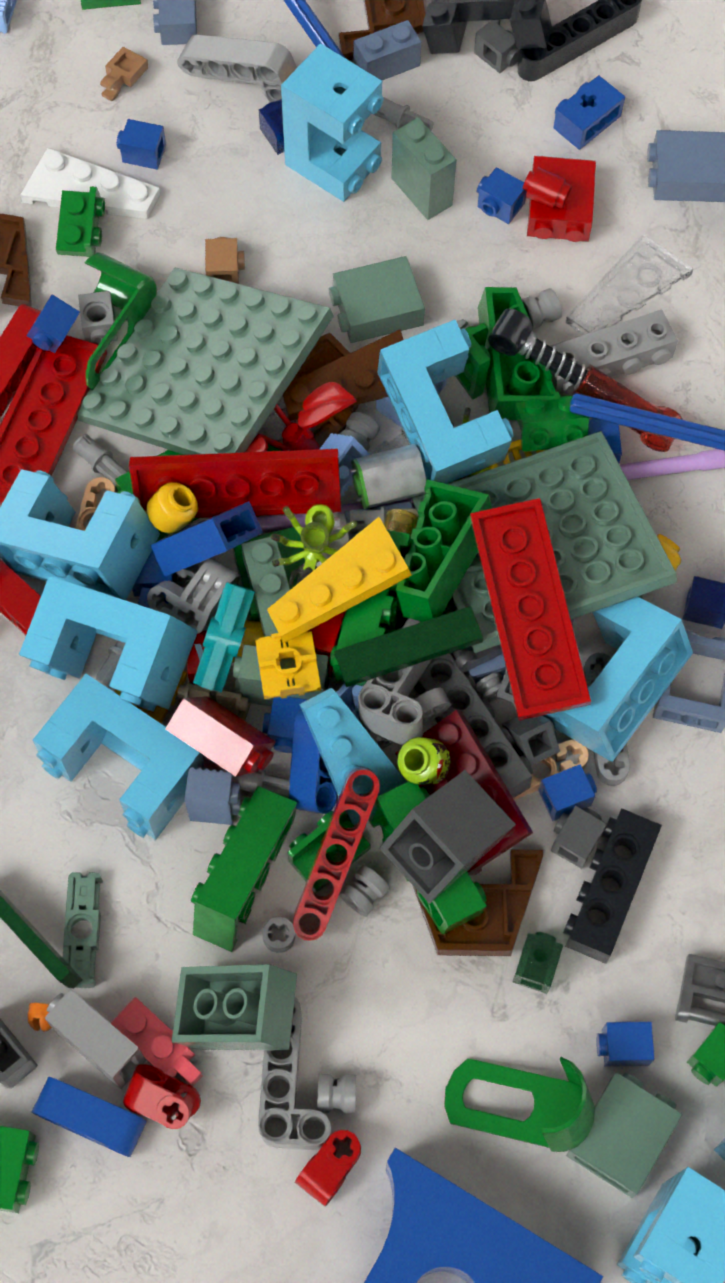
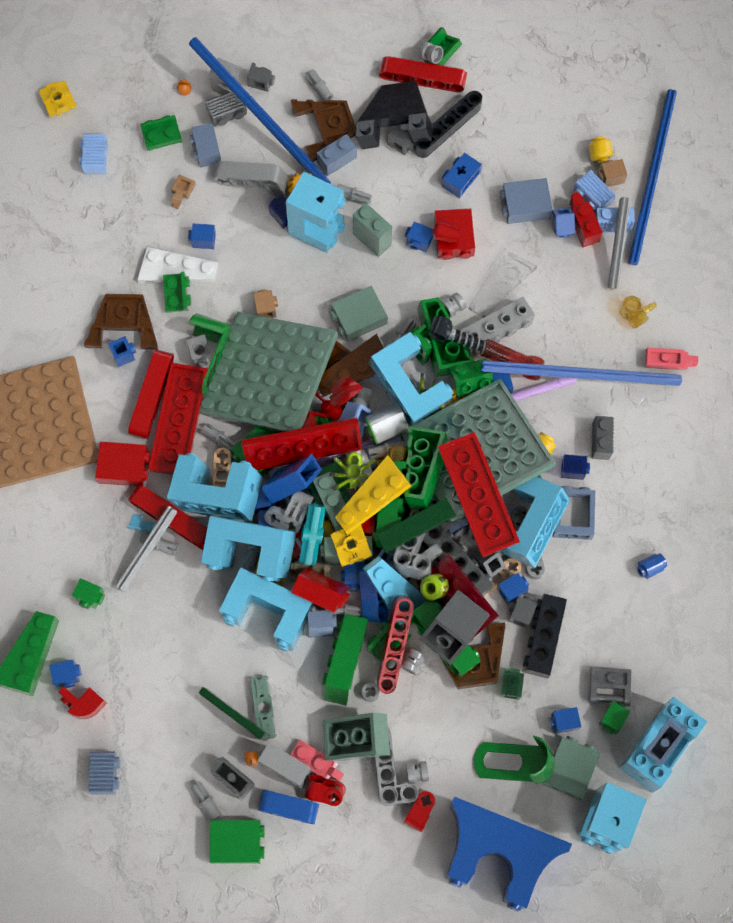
camera: 10 degrees left, 5 degrees up
(52, 324) = (176, 361): blue brick -> none
(172, 508) = (269, 464): yellow head -> none

